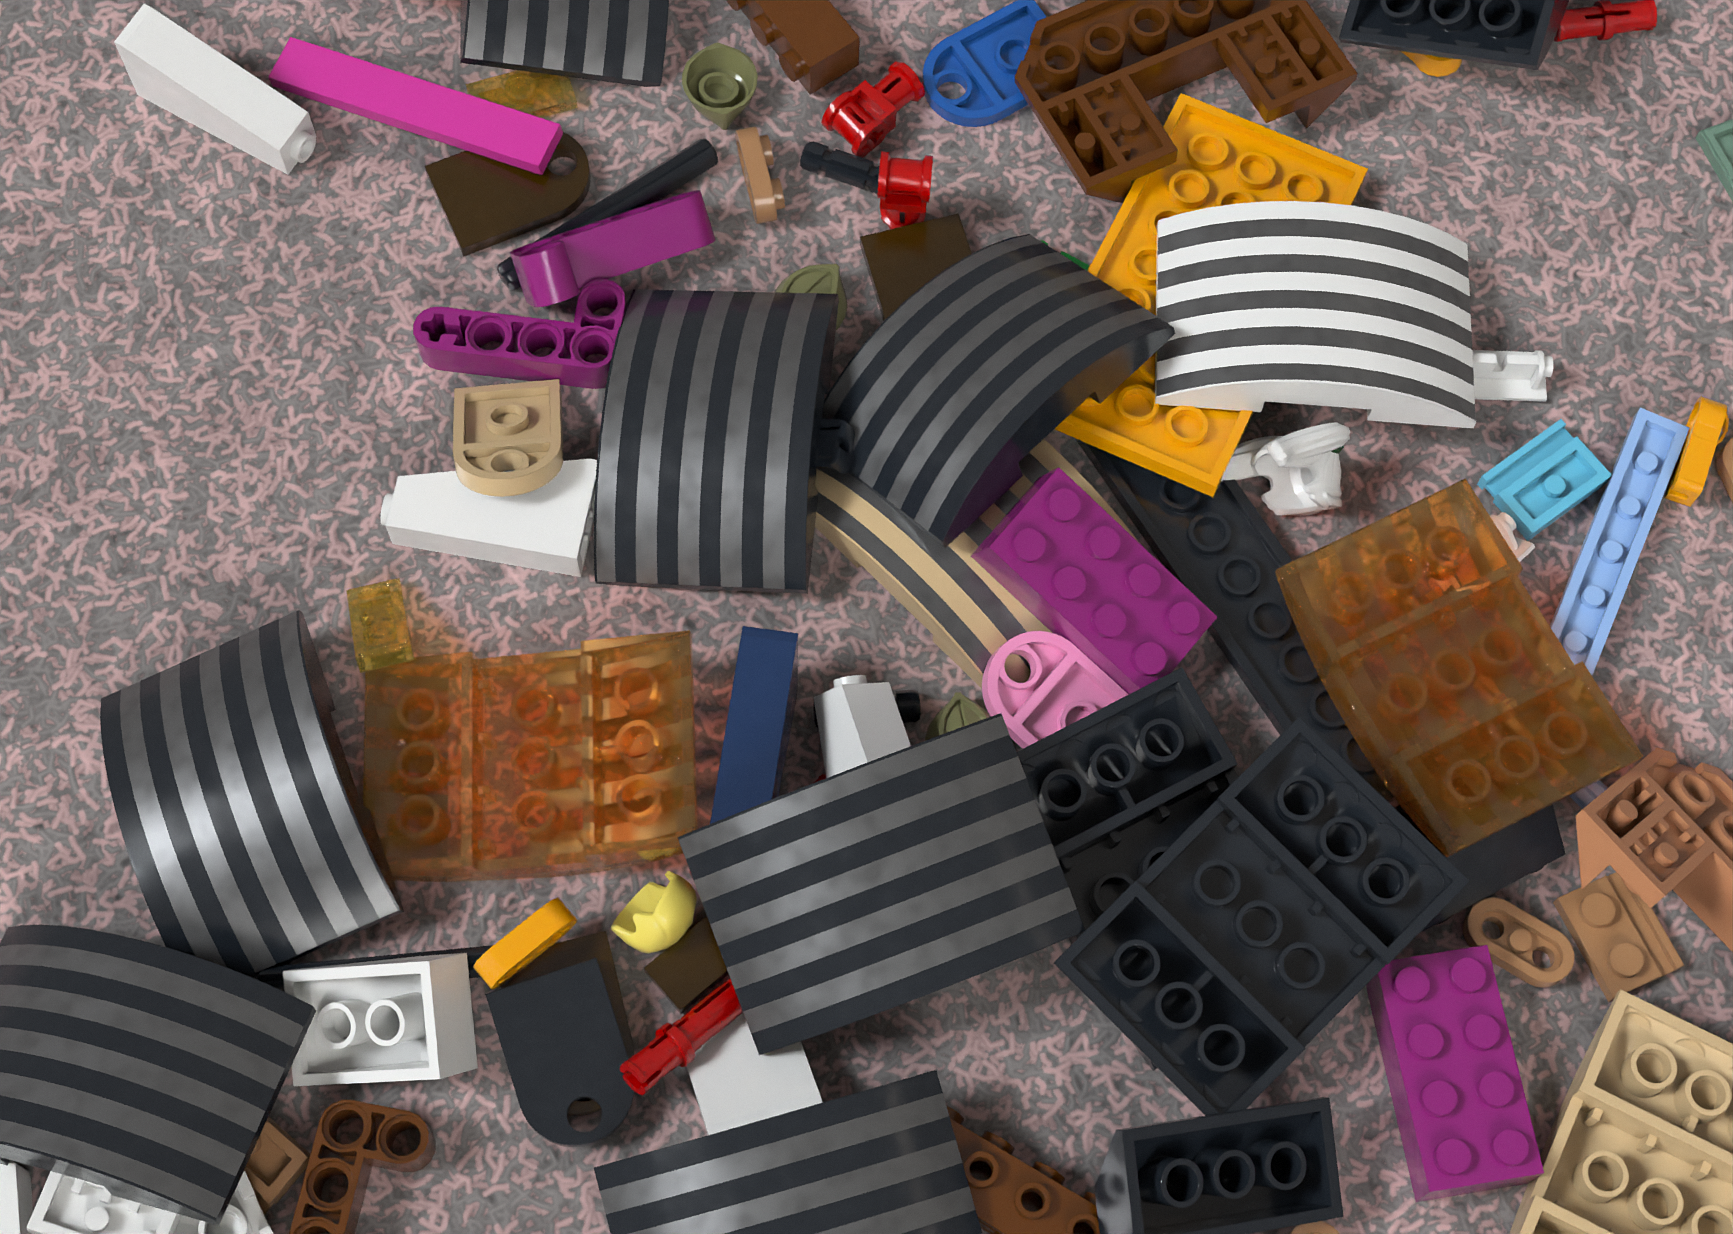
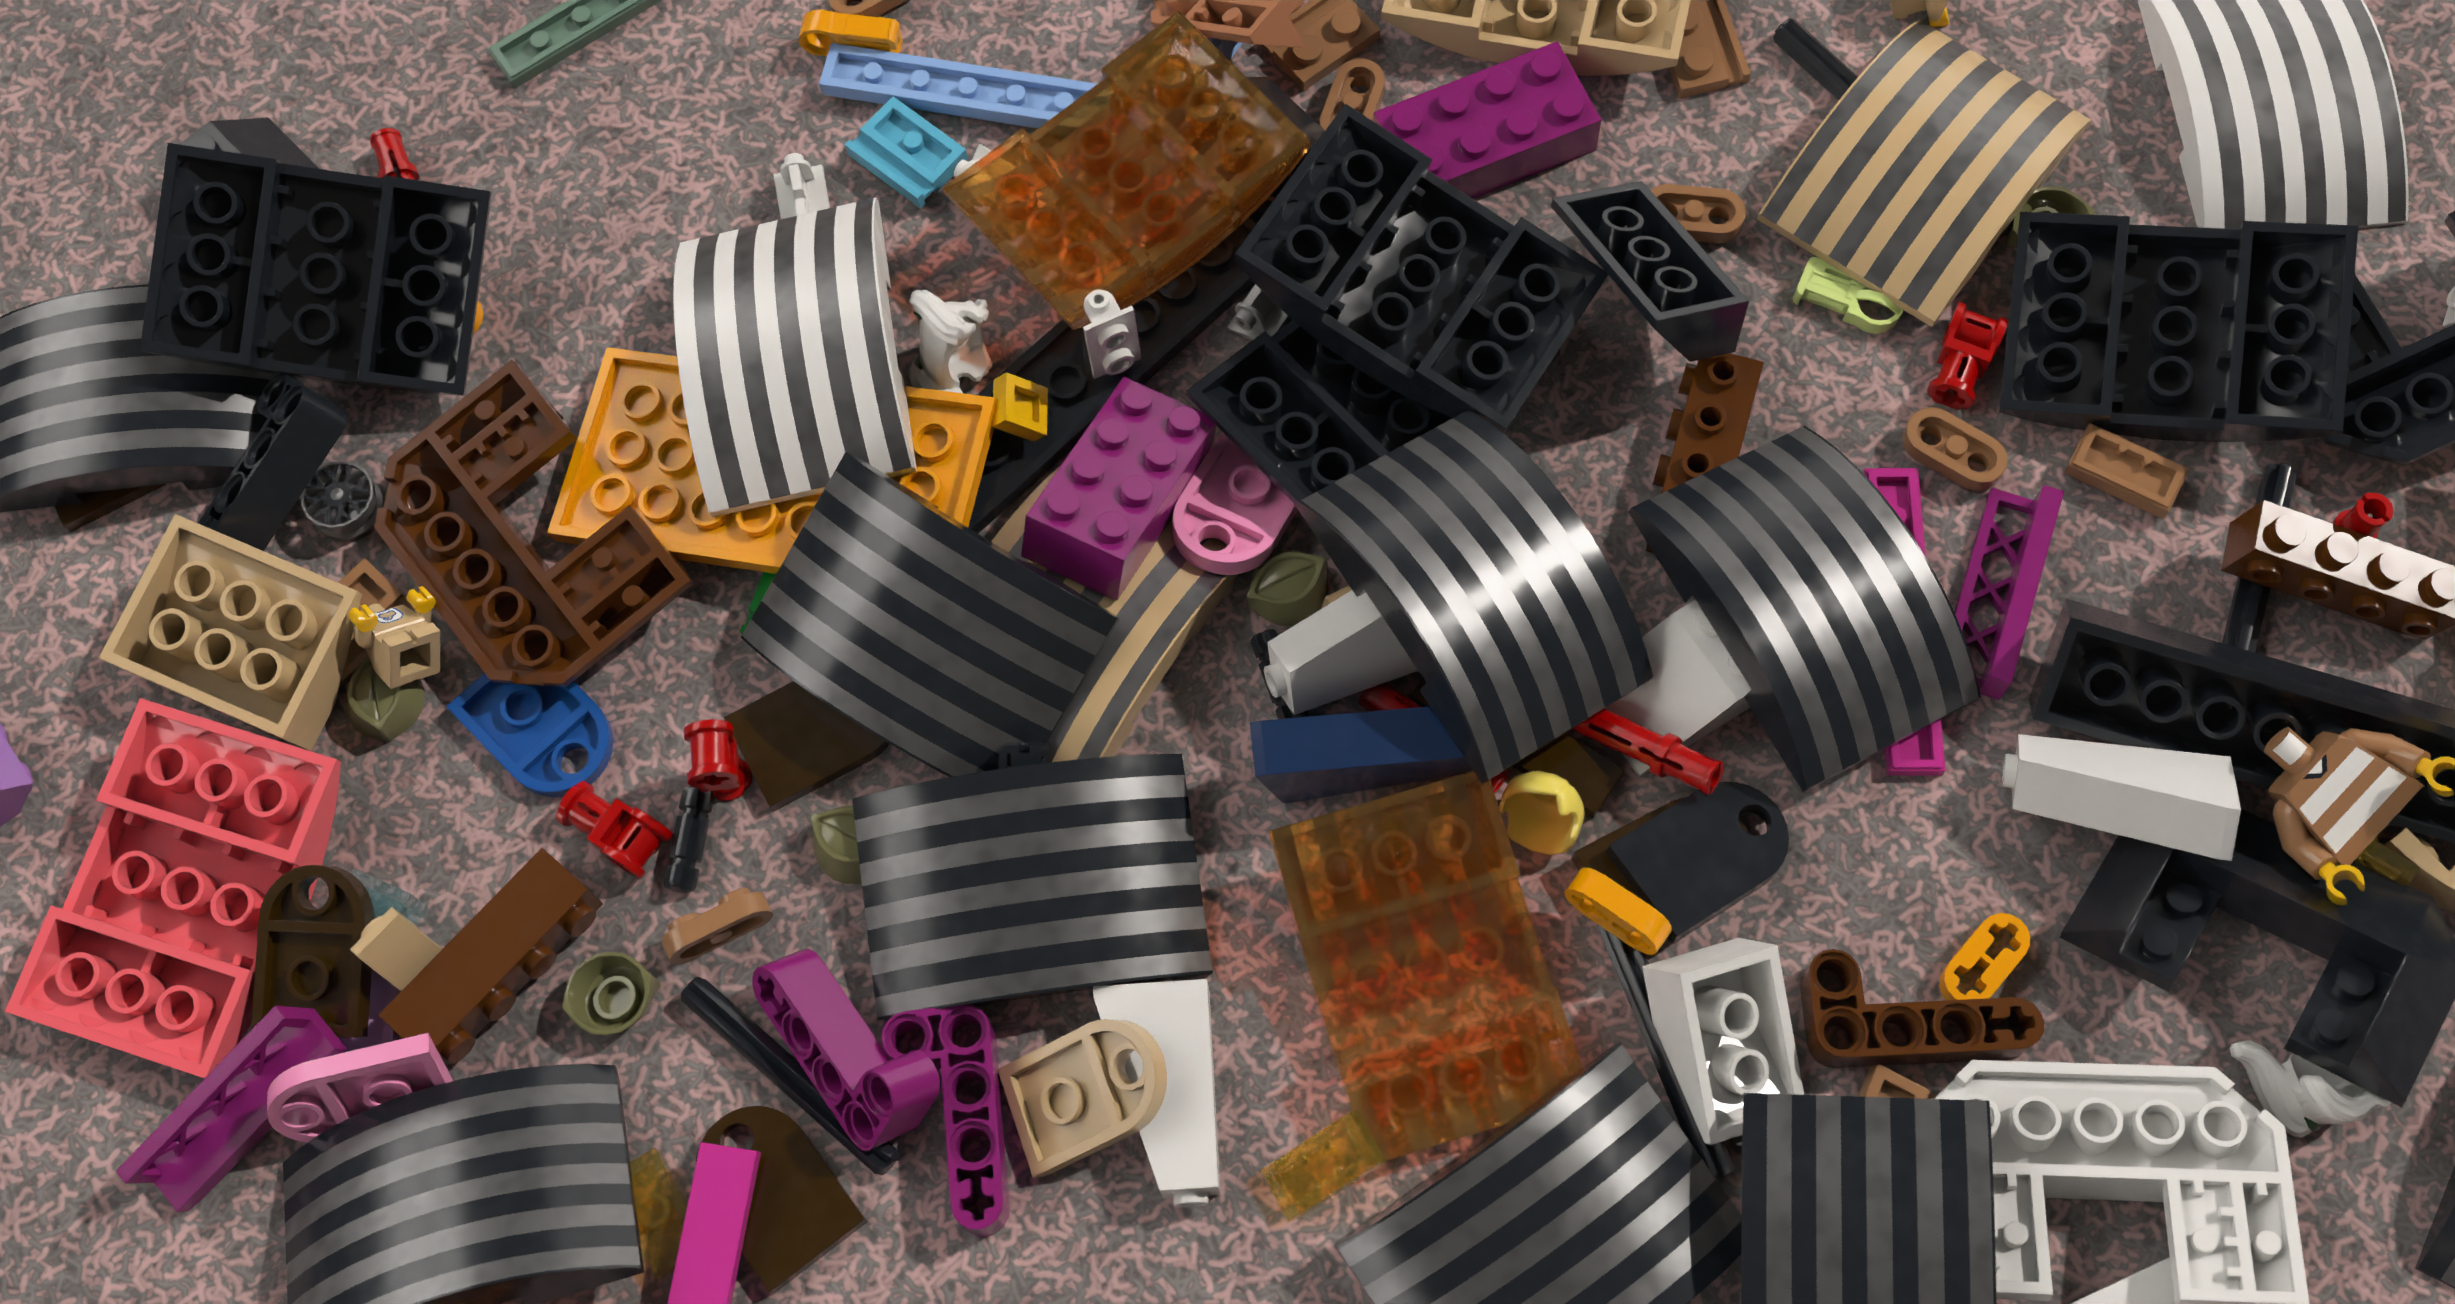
camera: 95 degrees left, 0 degrees up
(1208, 515) = (1020, 407): none -> yellow plate
(1261, 603) = (1111, 334): none -> white hinge

